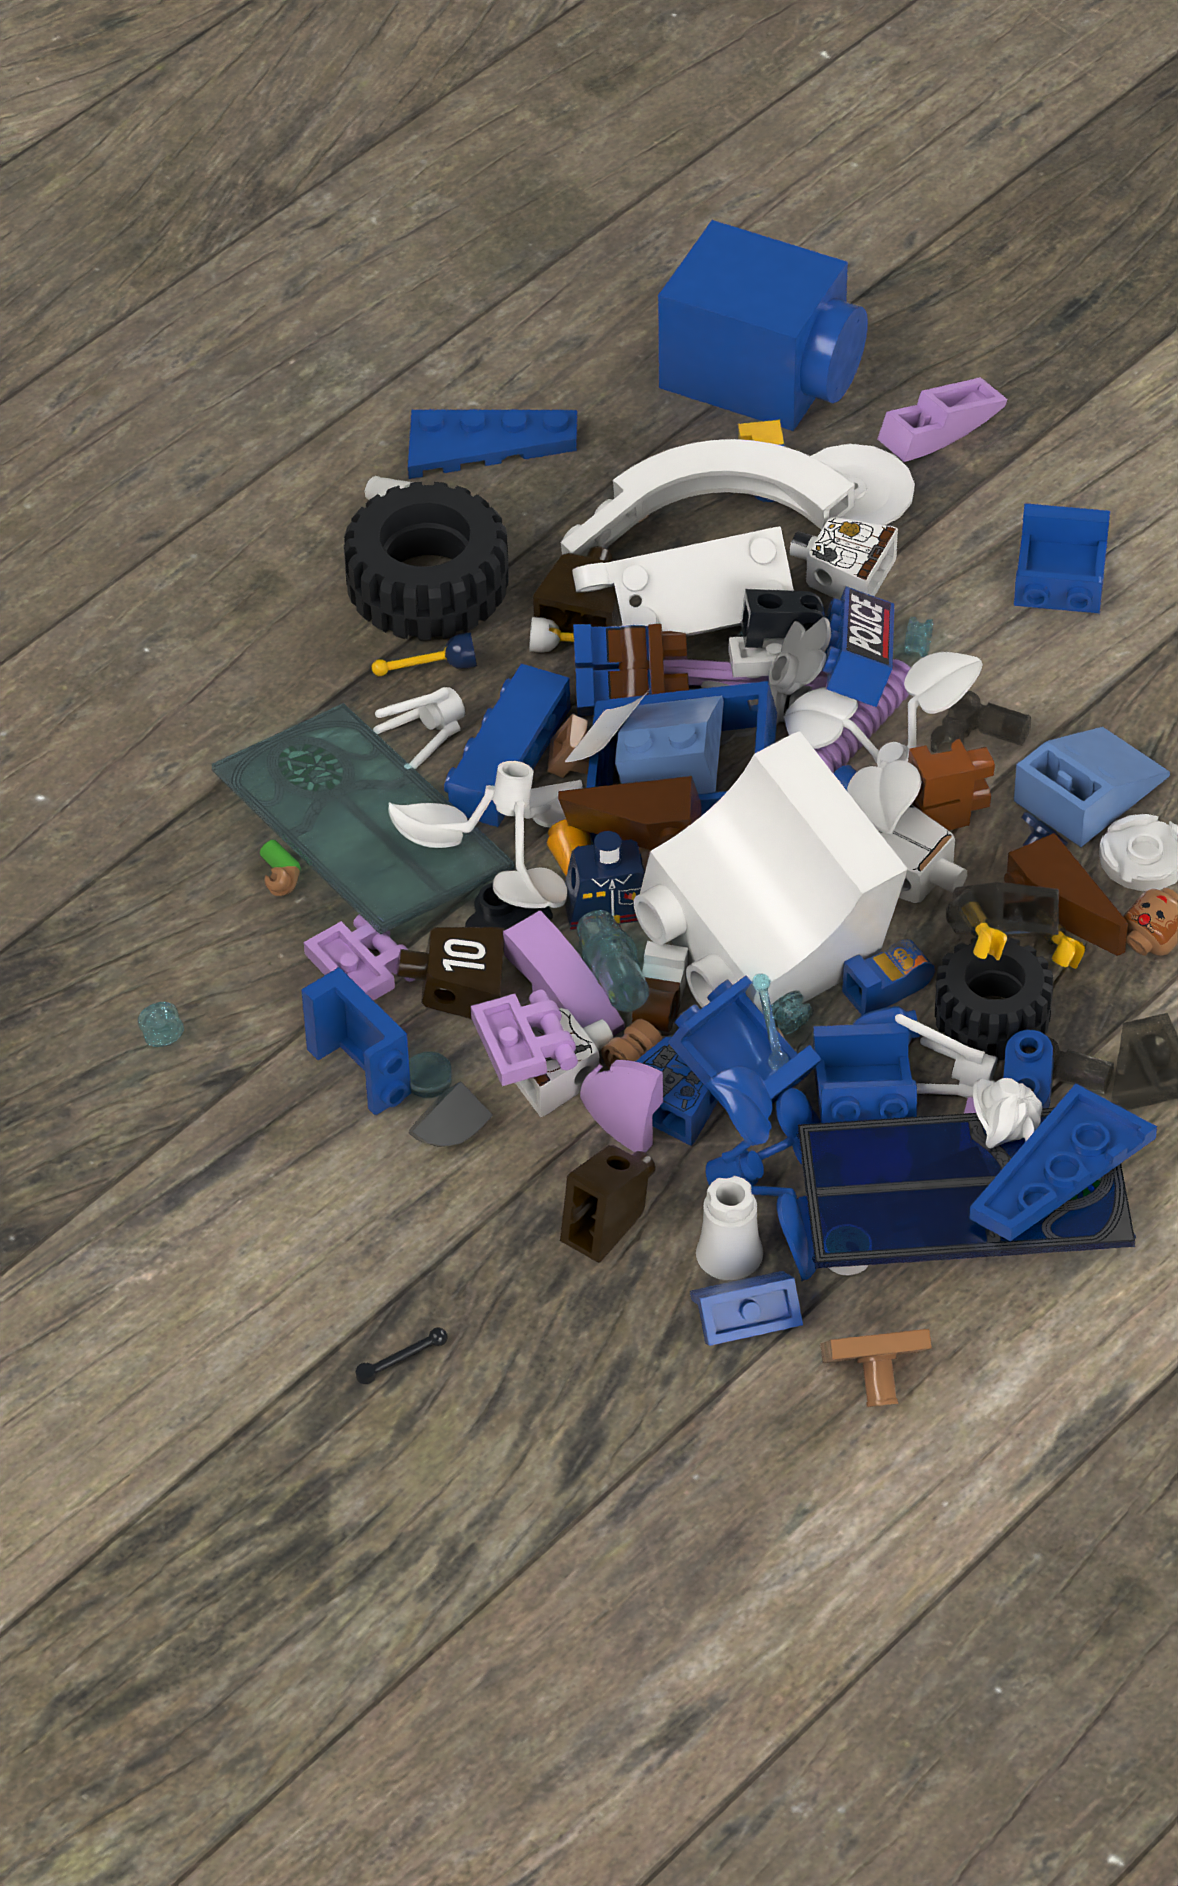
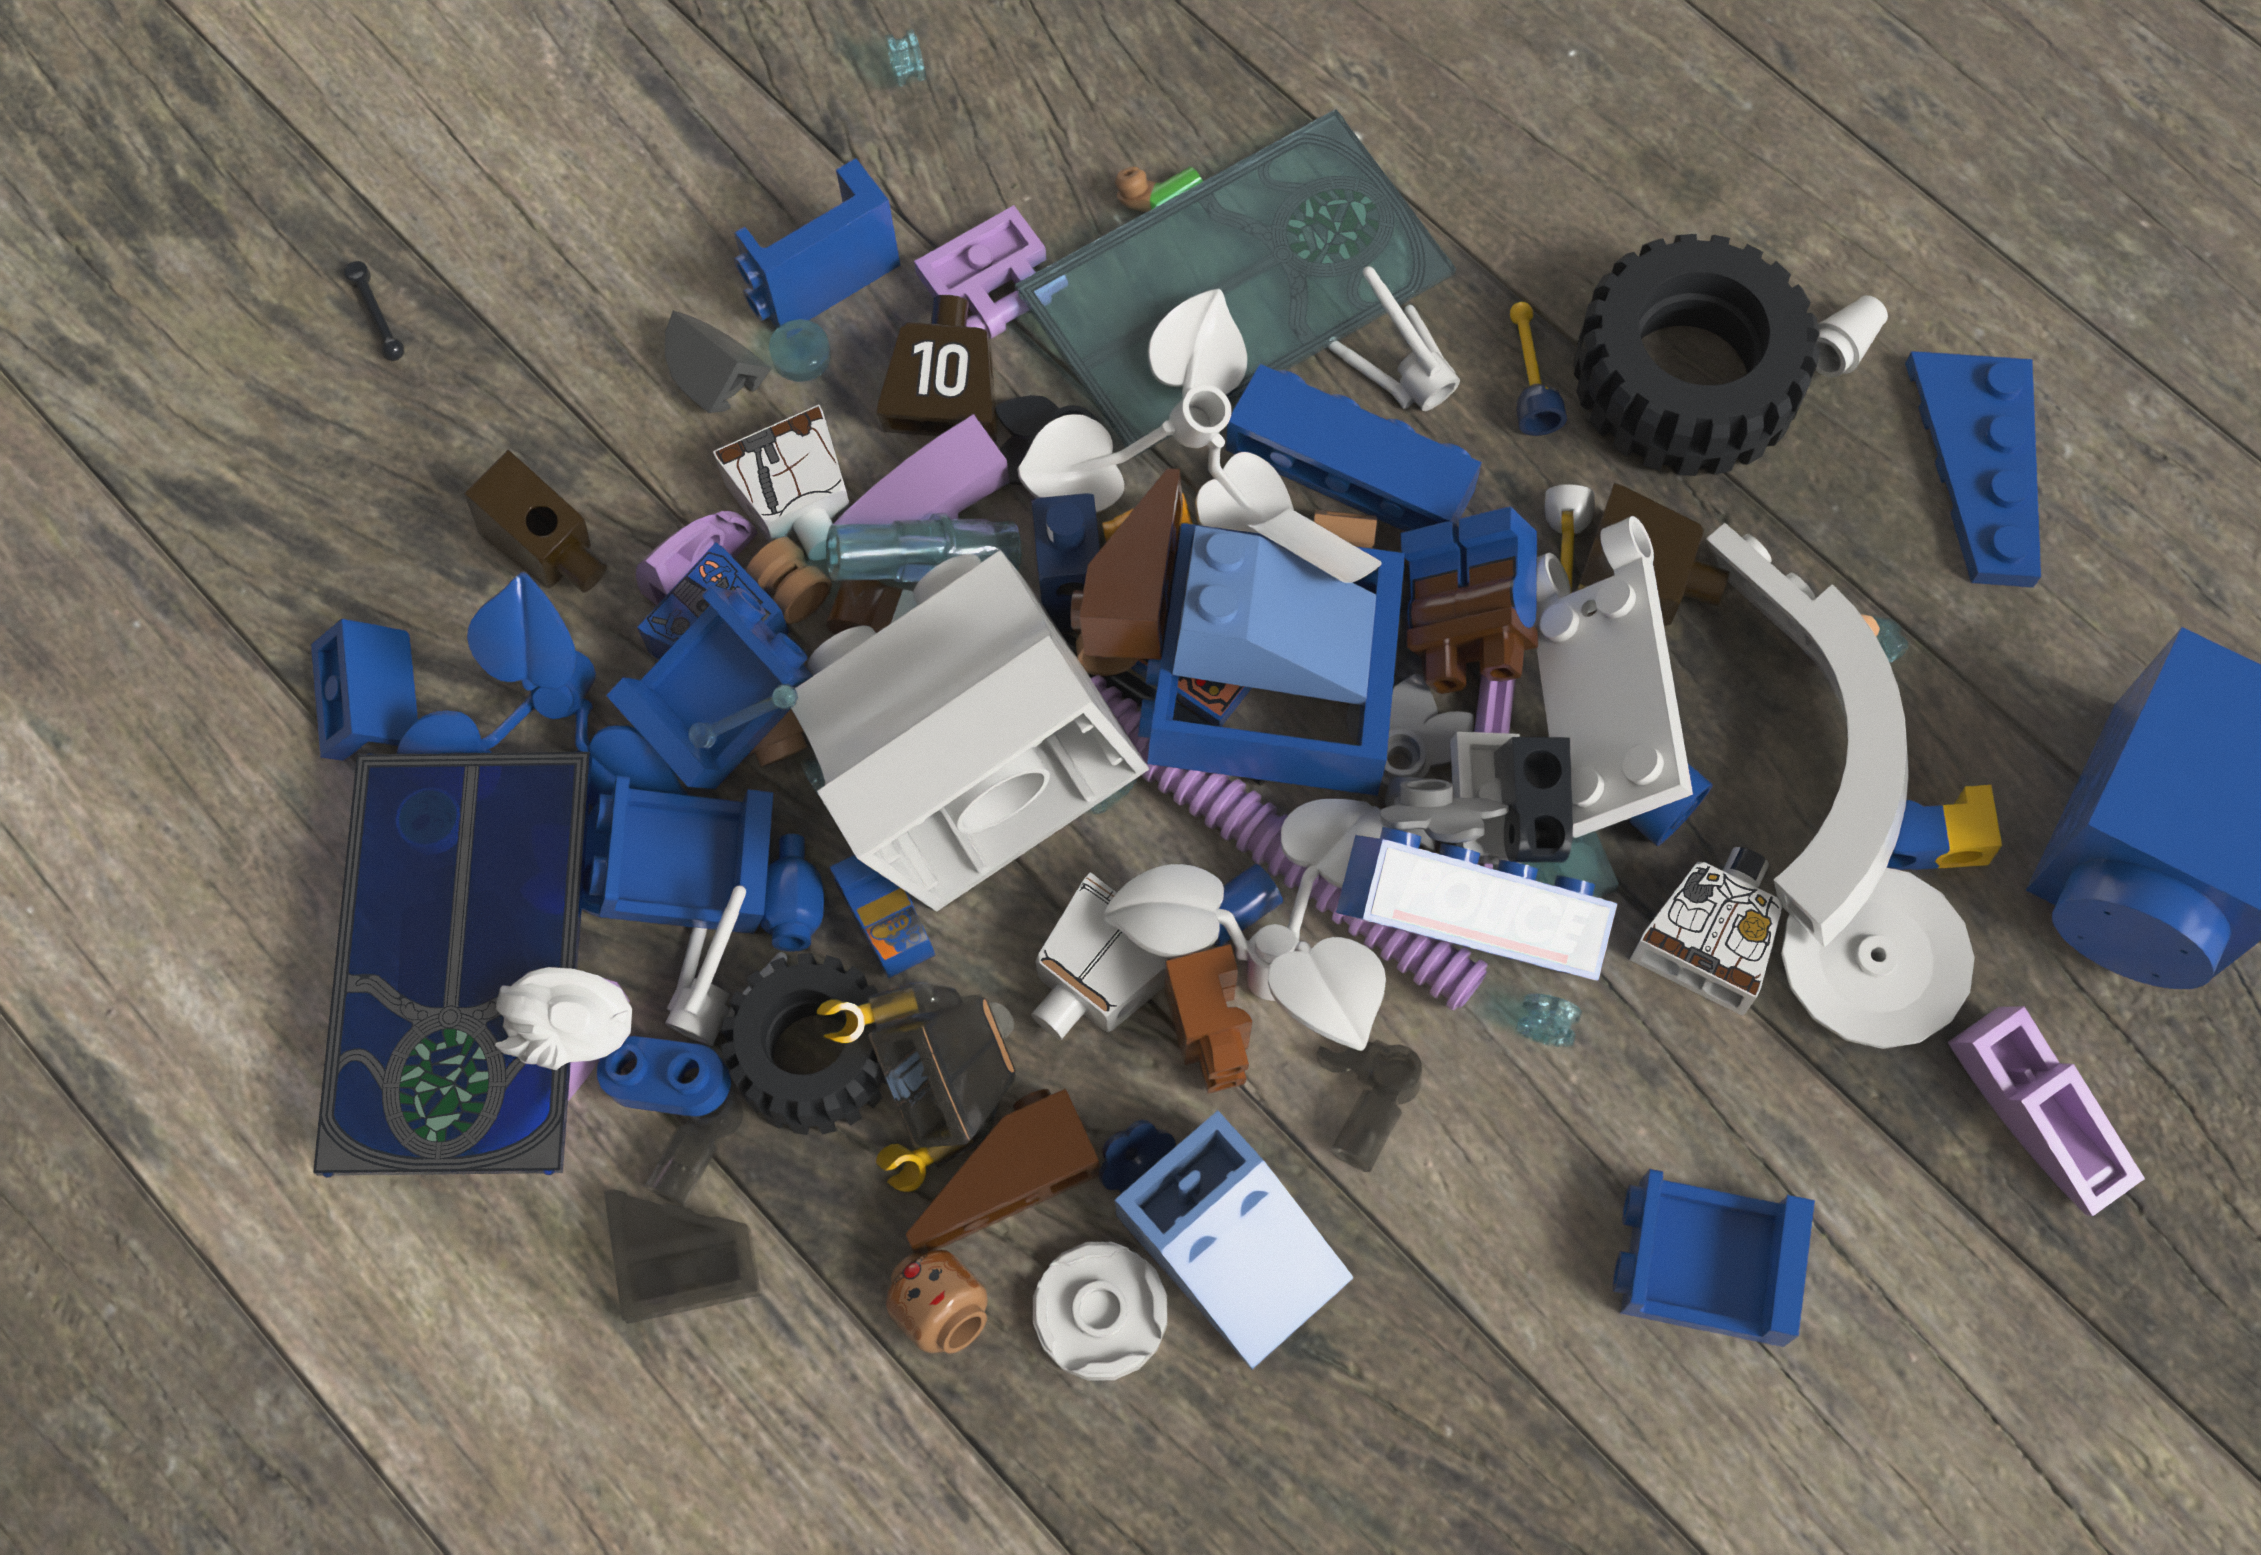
camera: 95 degrees right, 20 degrees up
(511, 1042) = (774, 409): lavender plate -> none
(729, 1233) = (448, 669): white plant -> none
(877, 1355) = (225, 823): medium nougat tile -> none
(1061, 1158) = (455, 1091): blue wing -> none

